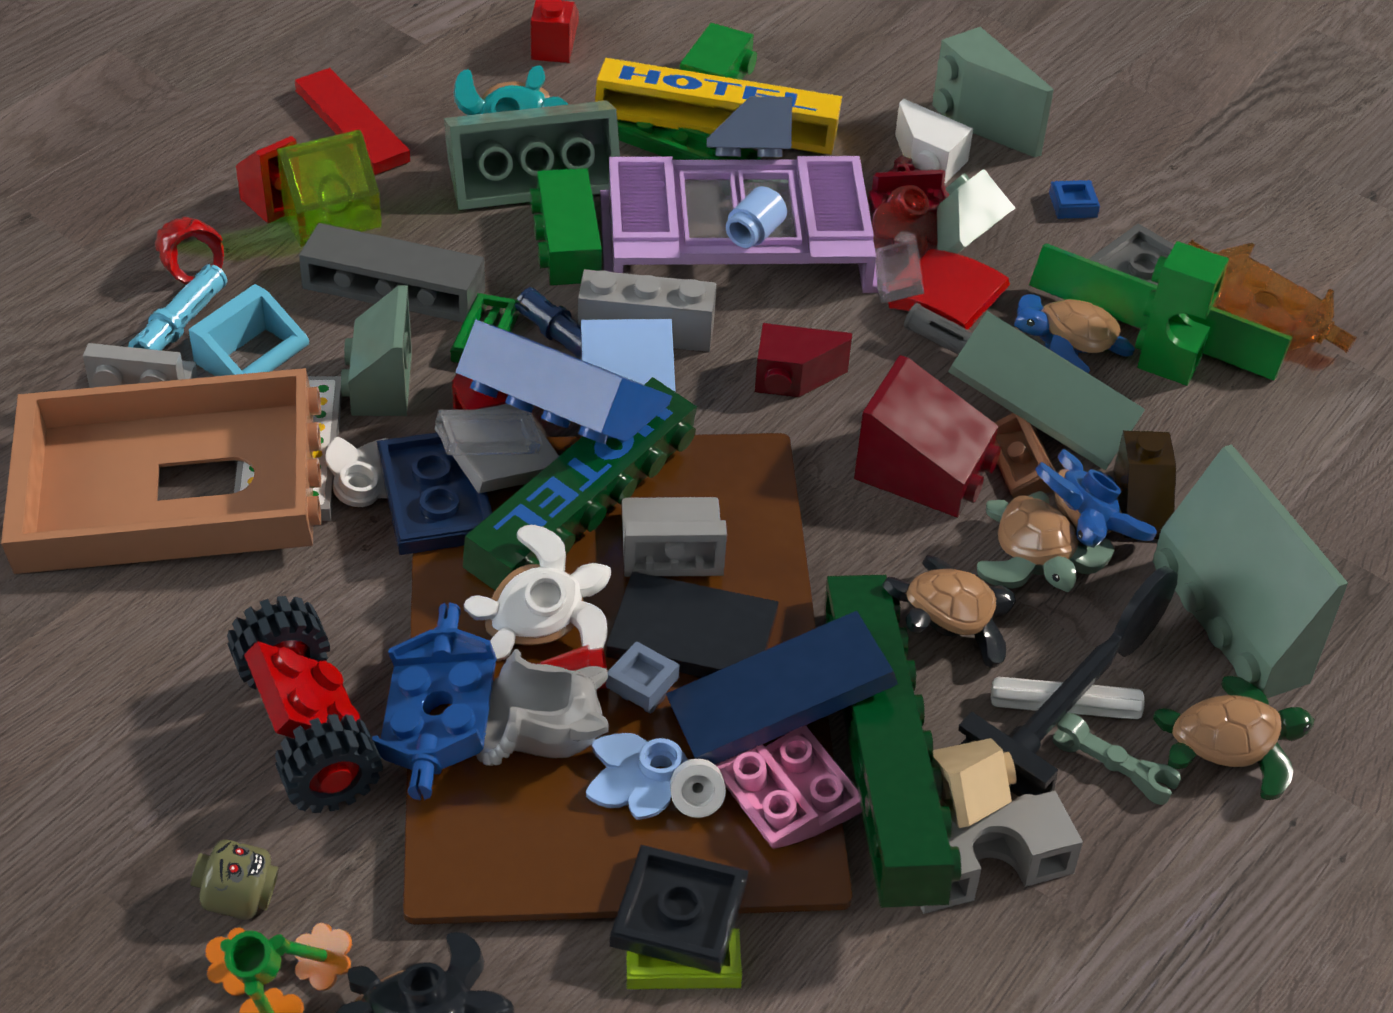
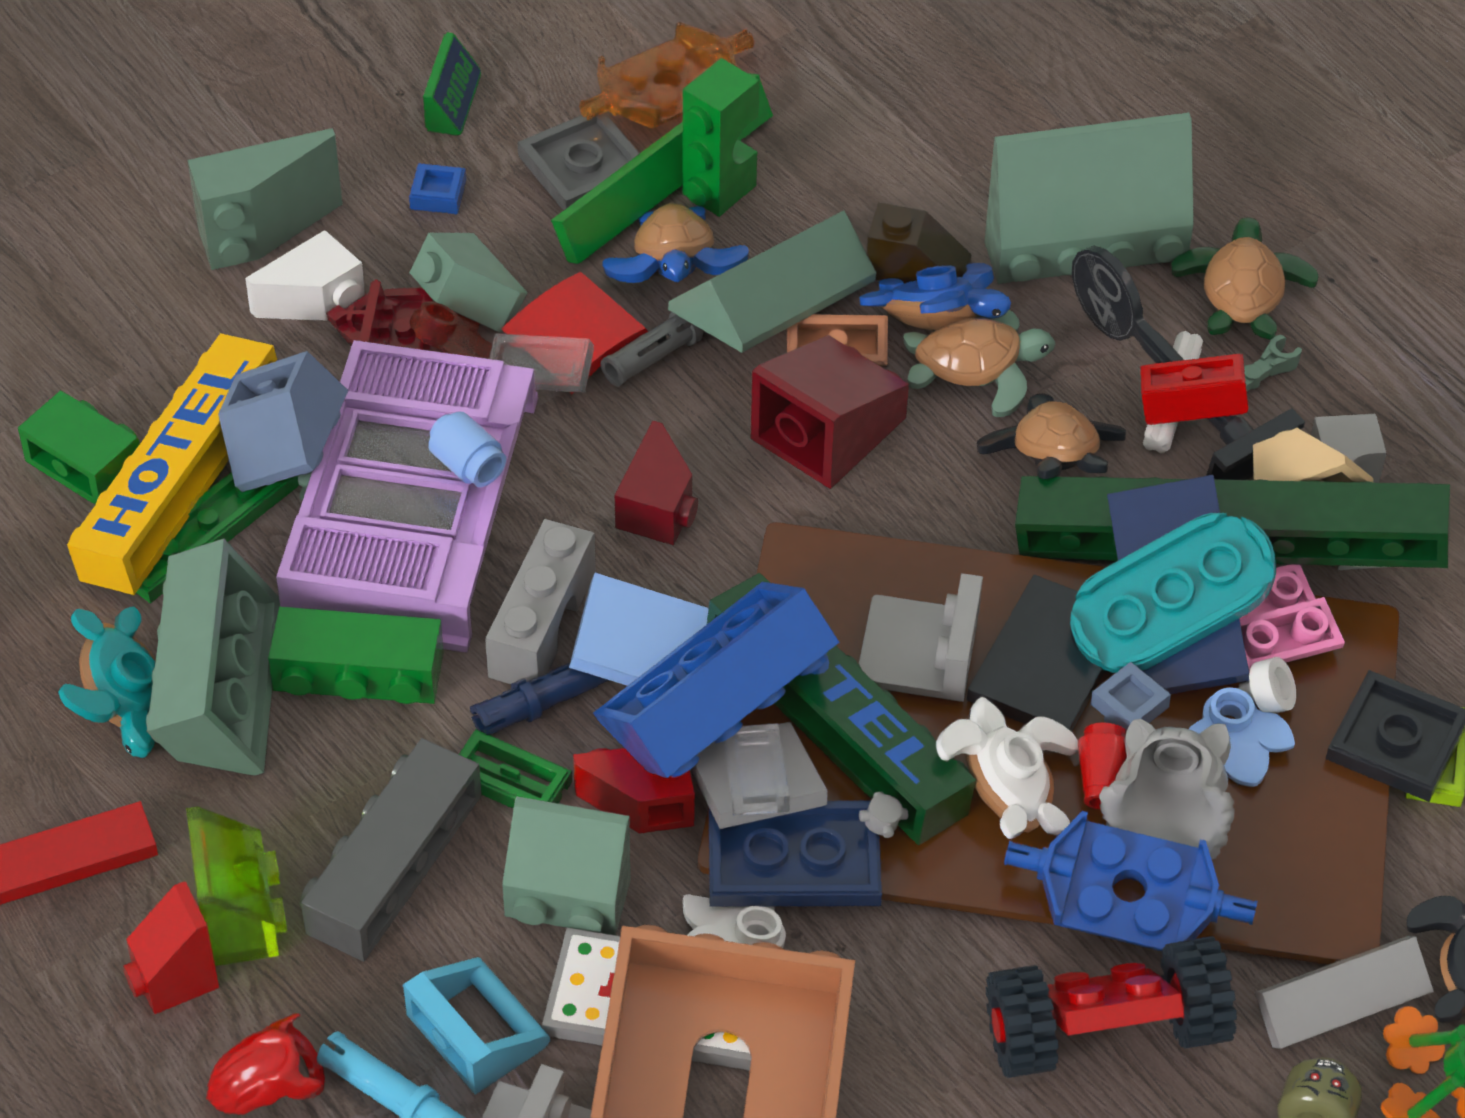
camera: 75 degrees left, 5 degrees up
(367, 893) = (1344, 992): none -> light grey tile
(468, 521) = (883, 814): none -> light grey piece
(763, 679) = (1173, 592): none -> teal tile
(1049, 688) = (1194, 389): none -> red slope
(1185, 181) = (450, 88): none -> slope

